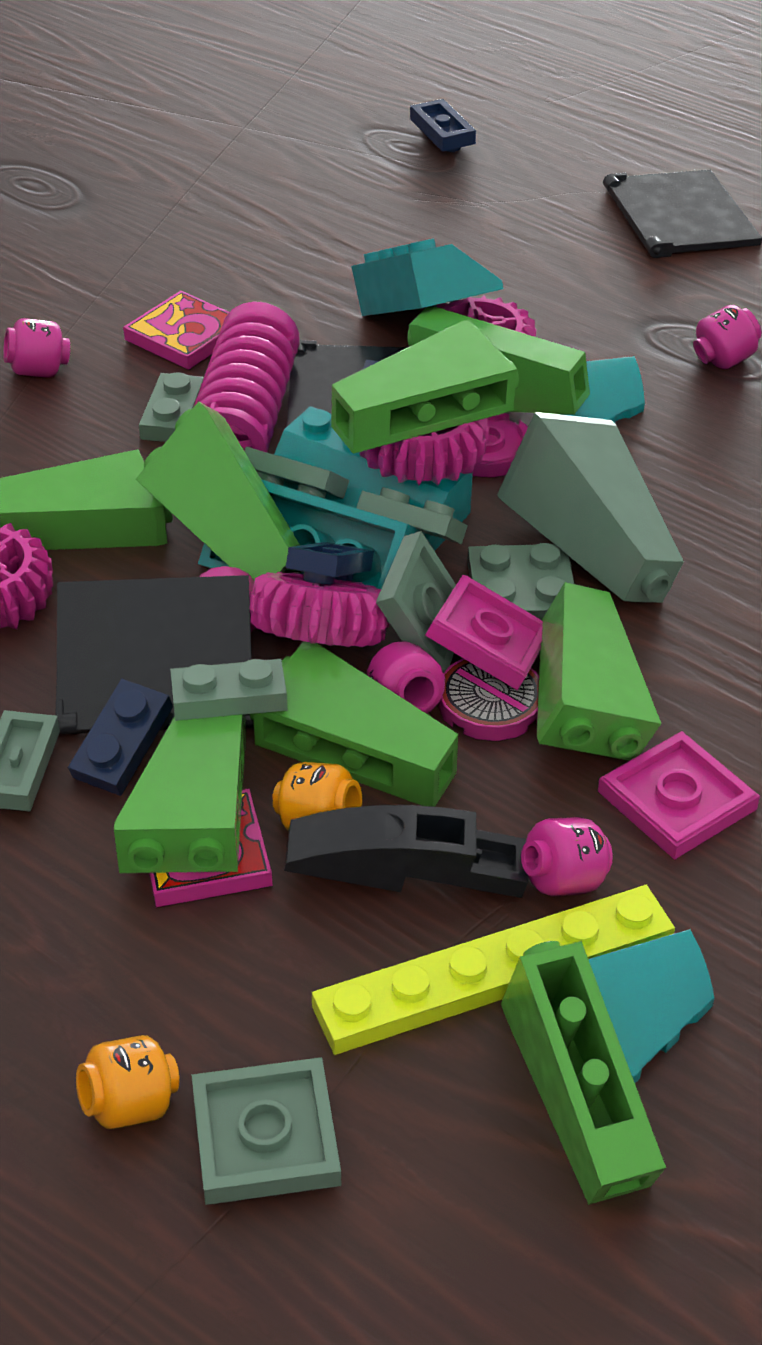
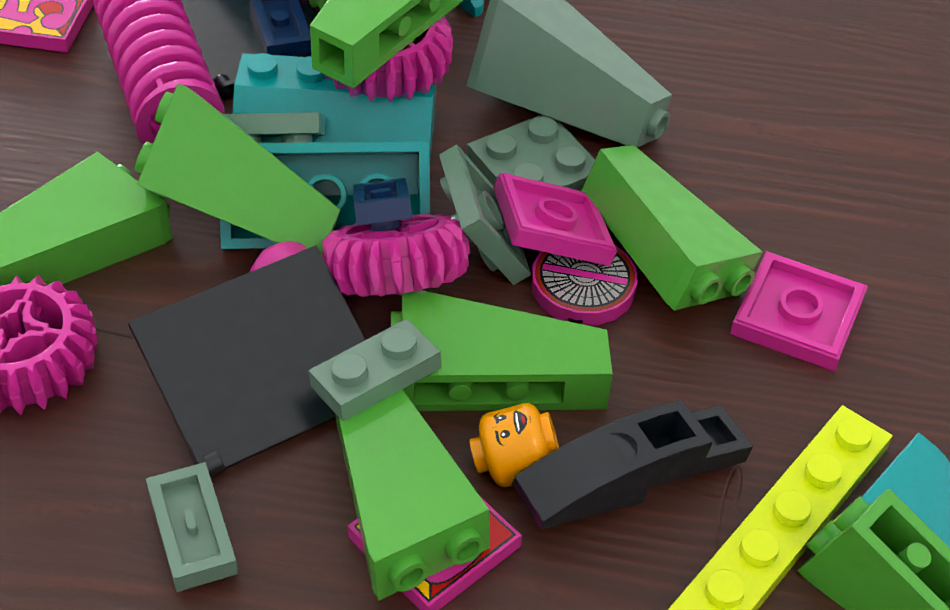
camera: 30 degrees left, 5 degrees up
(120, 737) = (281, 458): dark blue plate -> none
(169, 400) = (82, 97): sand green plate -> none
(409, 674) = (512, 285): dark pink head -> none
(432, 519) = (436, 127): sand green plate -> none
(566, 856) = (771, 407): dark pink head -> none

